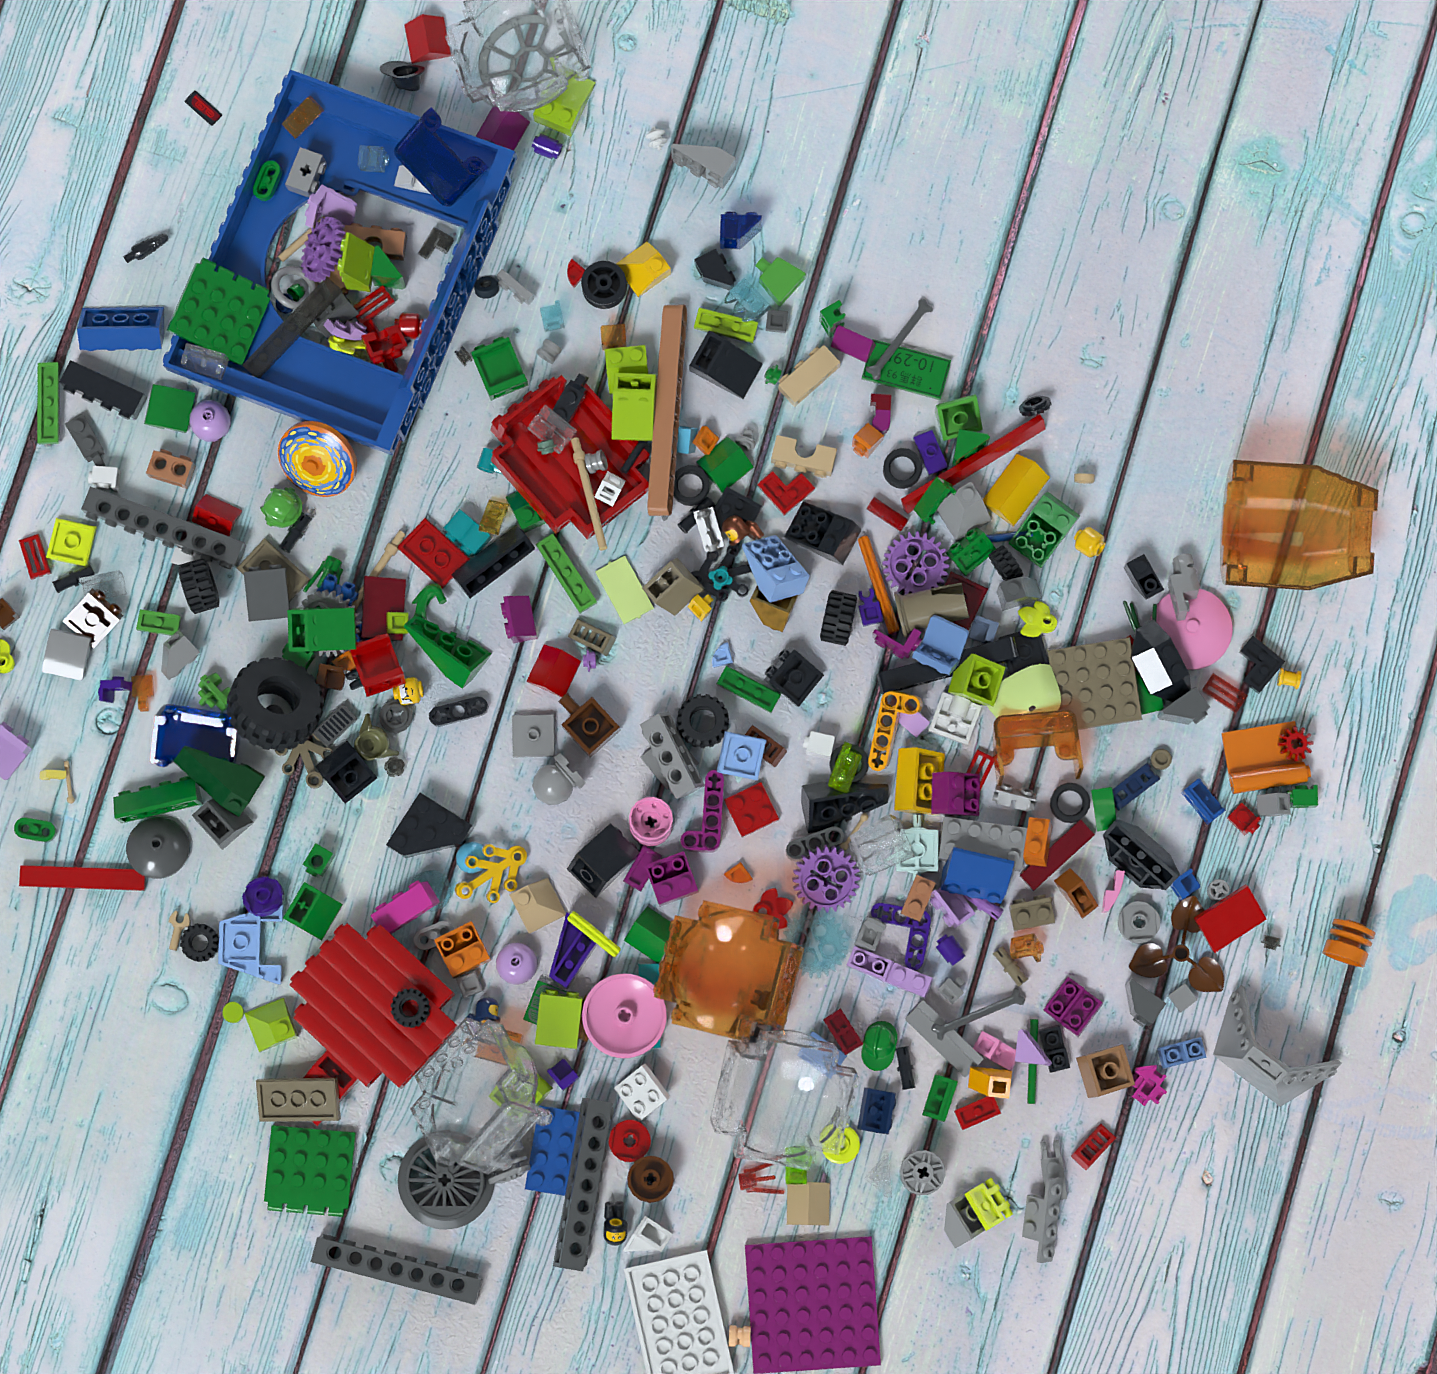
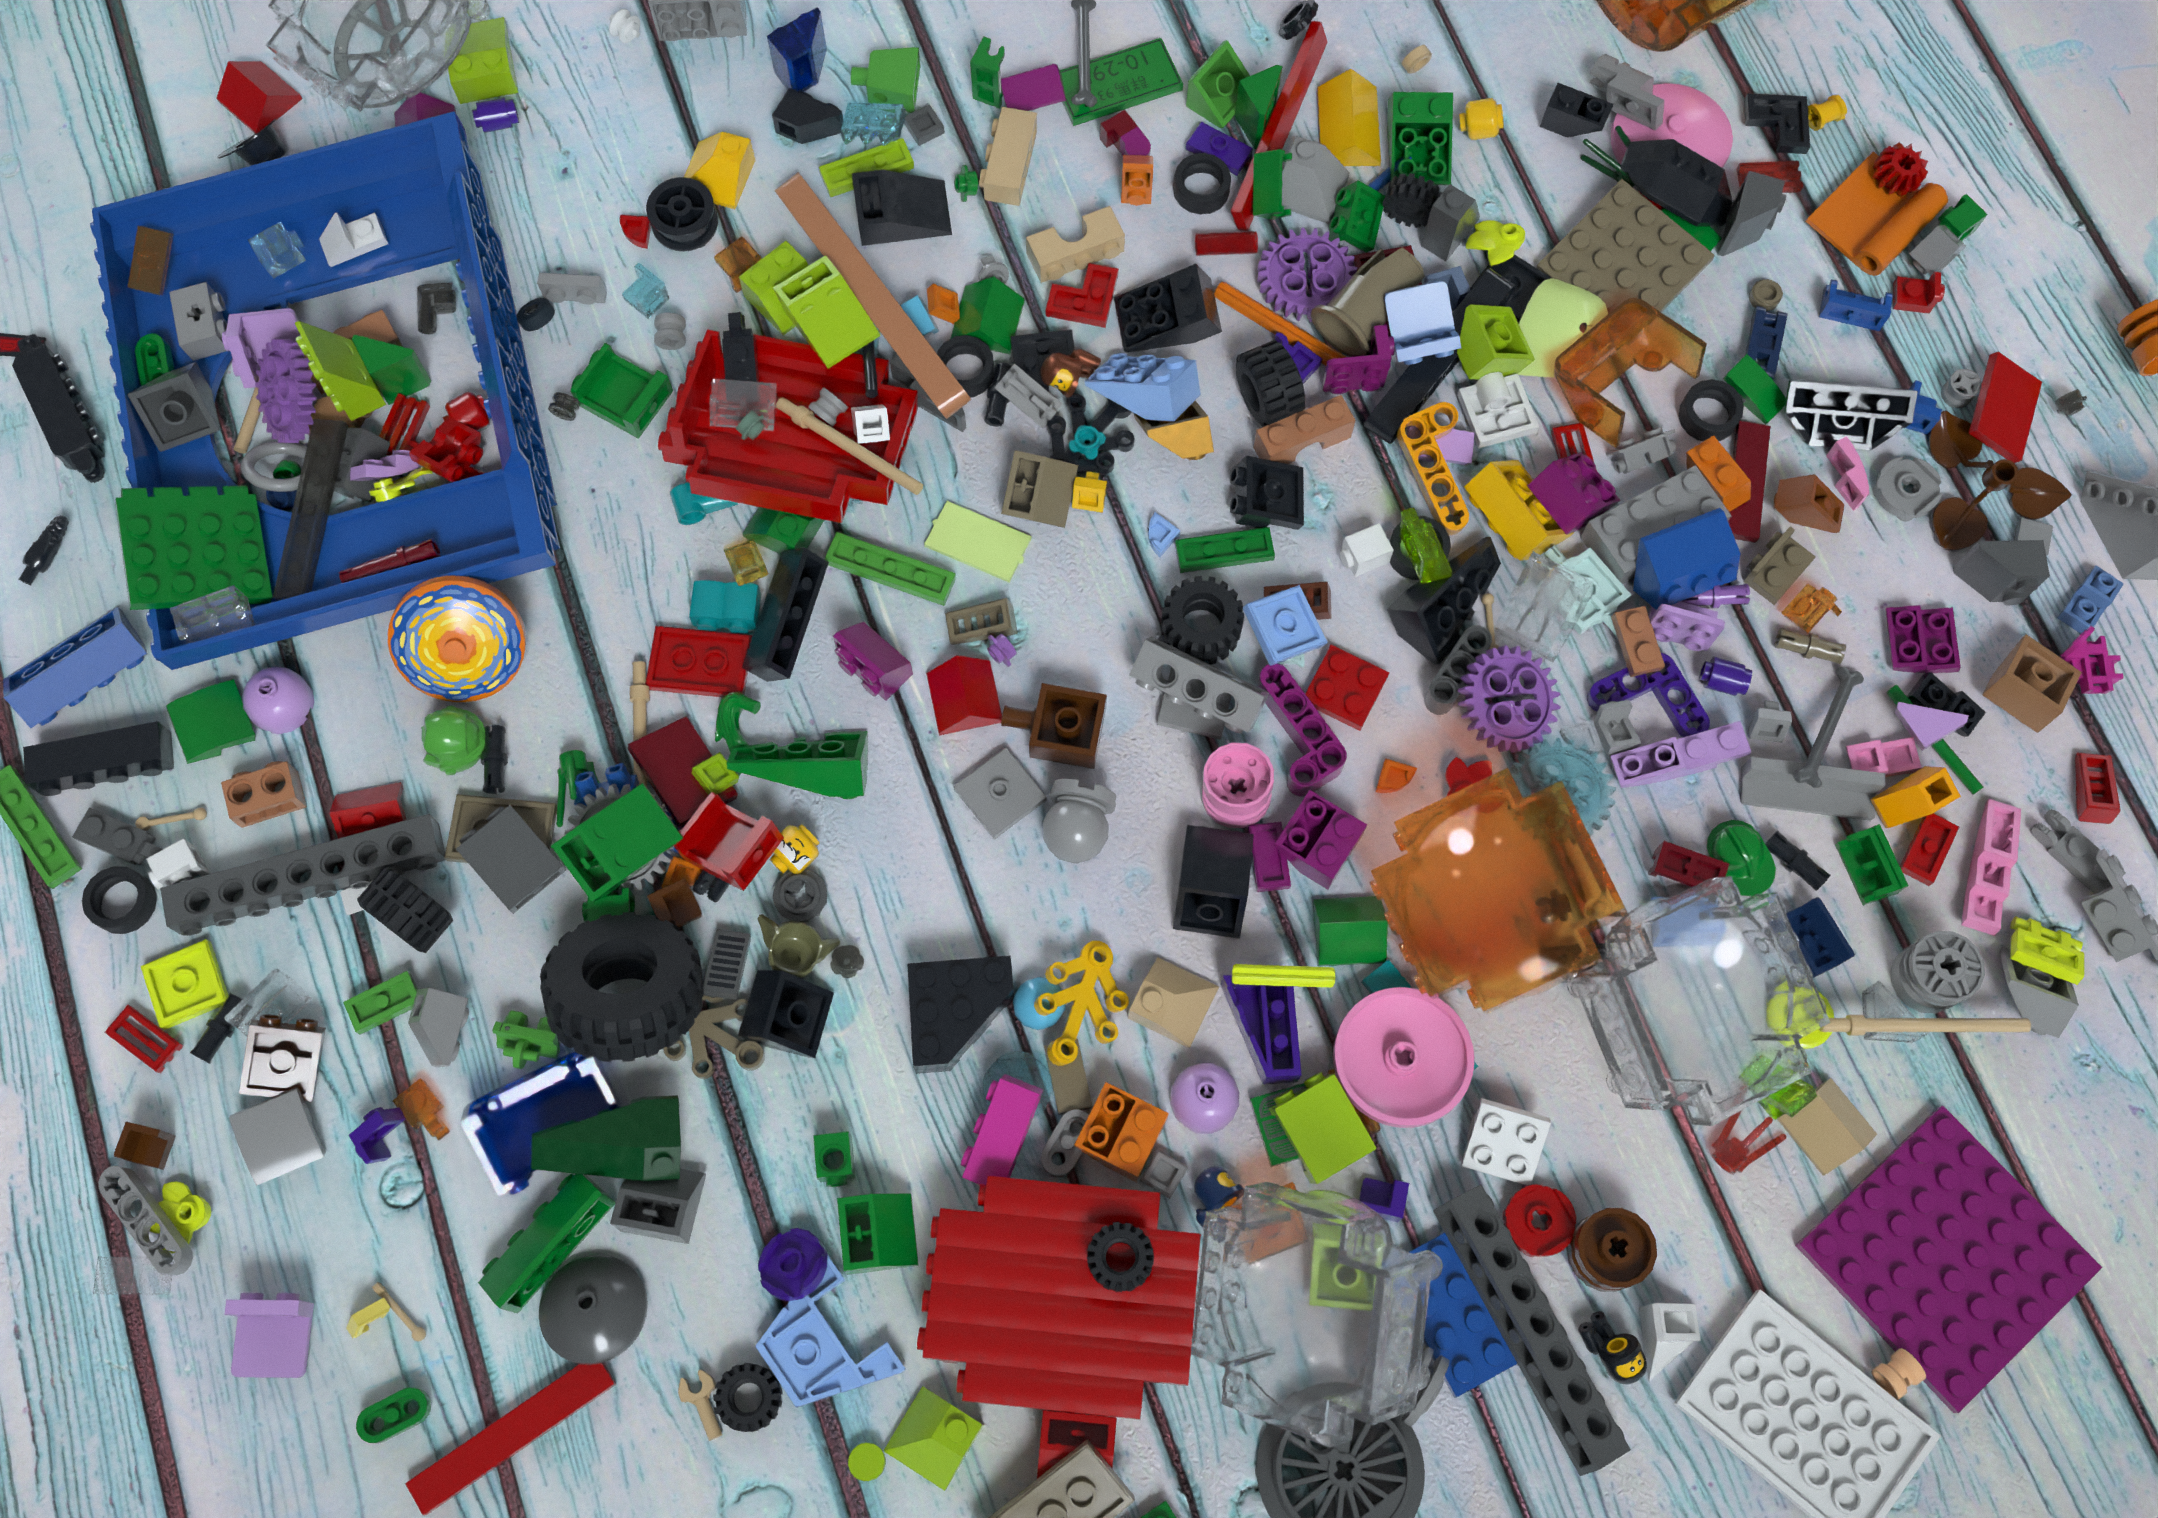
camera: 40 degrees left, 10 degrees down
(54, 465) = (101, 883): none -> black tyre
(103, 440) = (145, 823): none -> tan hinge
(202, 167) = (58, 409): none -> black hinge
(262, 217) = (176, 407): none -> dark grey slope
(319, 393) = (401, 557): none -> dark red pin
(436, 163) = (362, 181): clear blue windscreen -> none
(444, 720) = (901, 818): black beam -> none
(457, 907) = (1069, 1083): none -> dark tan tile
(839, 655) = (1323, 423): none -> nougat arch
(856, 1167) = (1858, 1025): none -> tan bar
(1001, 1144) = (1991, 867): none -> bright pink slope

